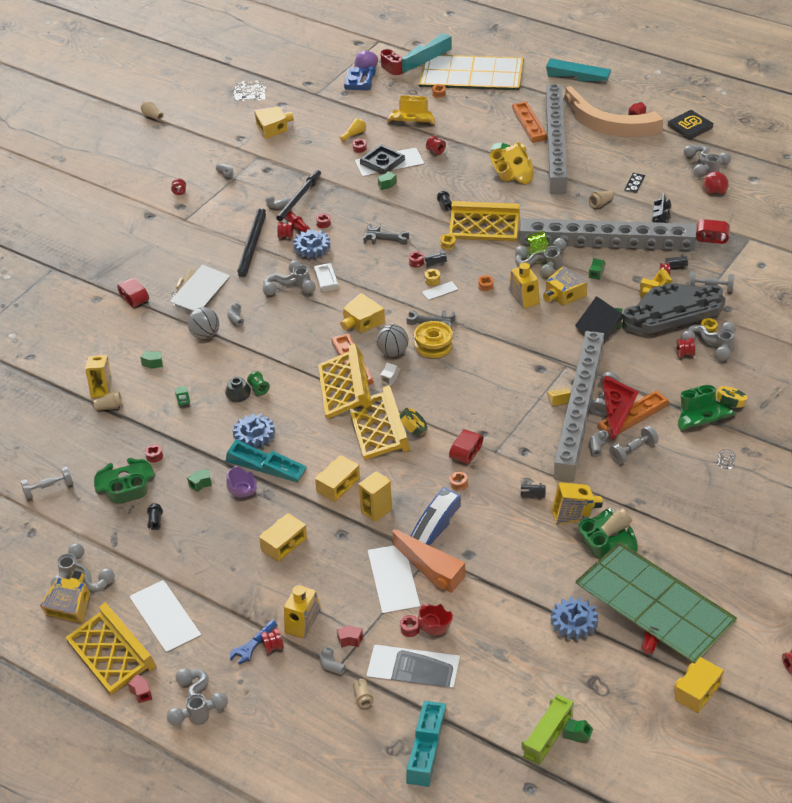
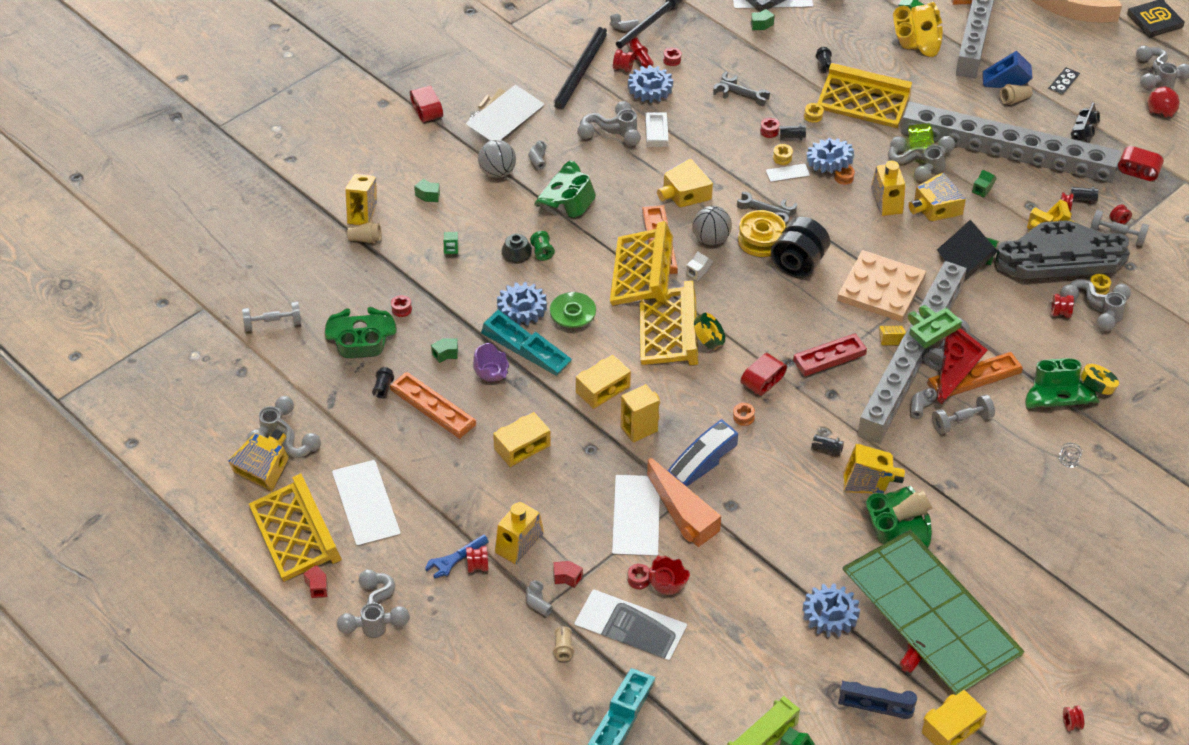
camera: 10 degrees right, 5 degrees up
(201, 526) = (433, 405): none -> orange tile
(274, 336) = (575, 193): none -> green piece
(297, 427) = (572, 309): none -> bright green dish
(468, 343) = (800, 247): none -> black wheel
(470, 270) = (830, 155): none -> medium blue gear
(514, 421) = (829, 354): none -> plate
(539, 361) = (881, 286): none -> light nougat plate
(591, 382) = (933, 326): none -> bright green hinge
(592, 181) = (1010, 70): none -> blue slope
(632, 681) = (878, 700): none -> dark blue plate
(709, 271) = (1120, 214): none -> red bush

